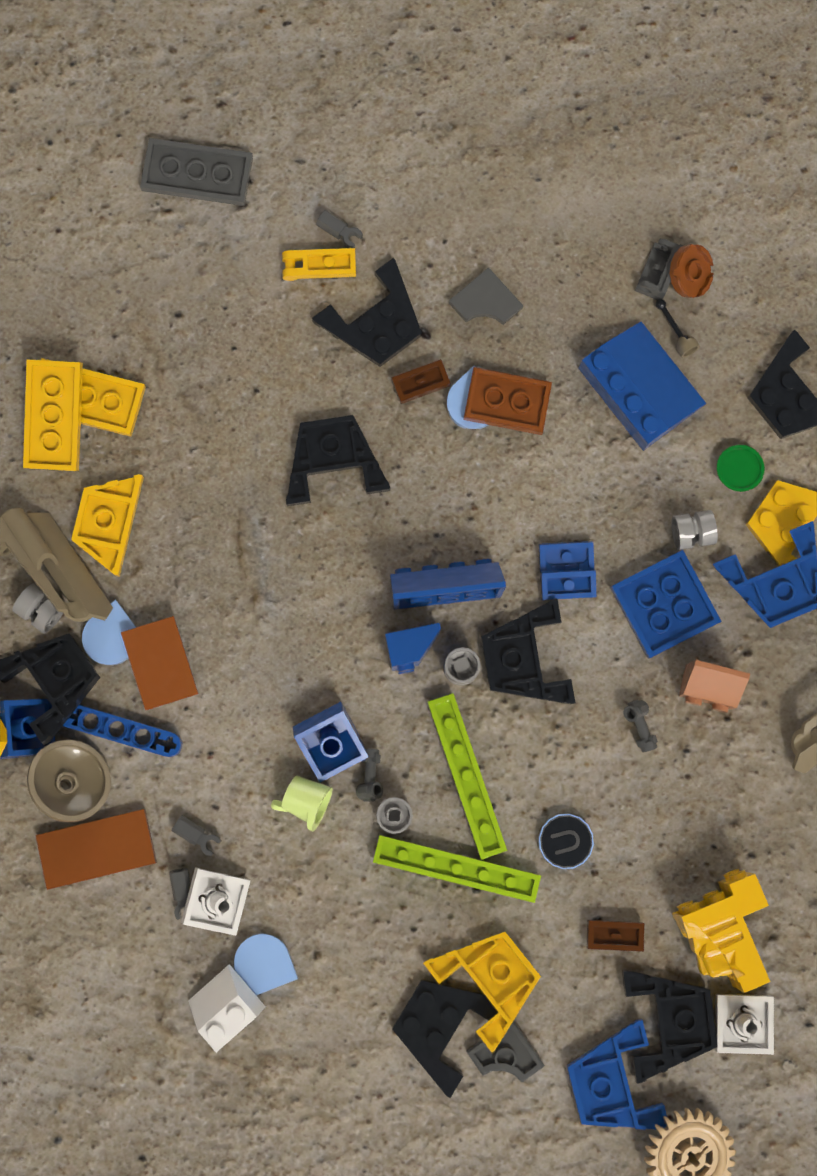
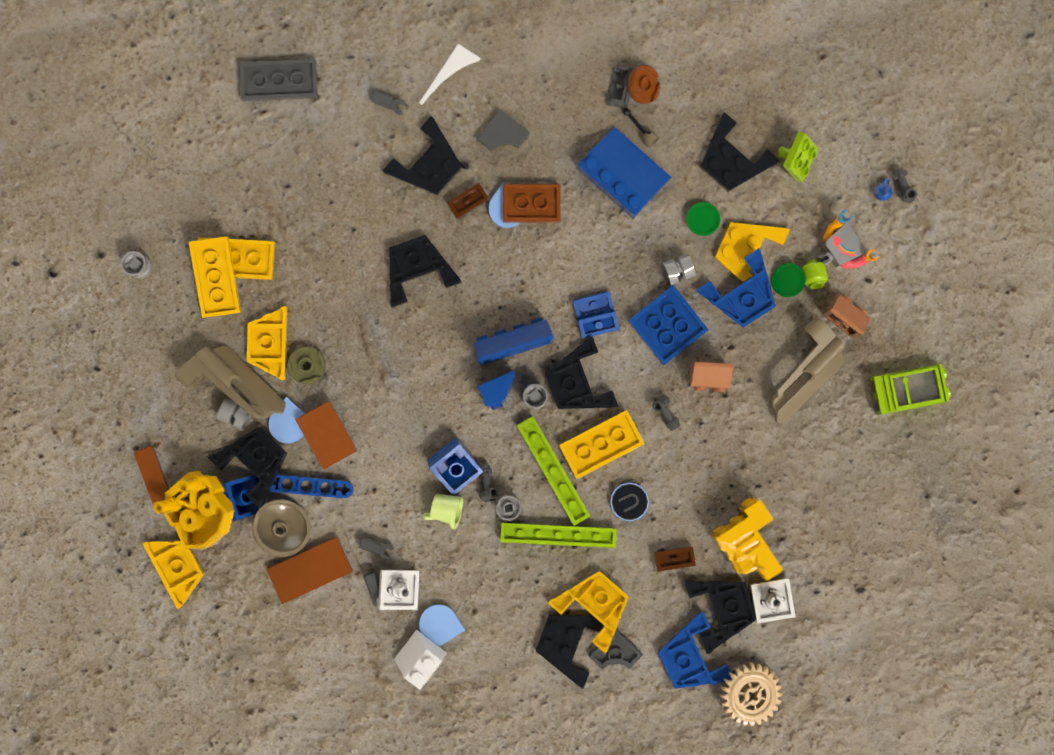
camera: 10 degrees left, 5 degrees up
(138, 560) = (296, 363): none -> olive plate
(319, 263) = (379, 130): yellow plate -> none
(445, 191) = (458, 59): none -> white sticker
(541, 752) = (601, 444): none -> yellow plate

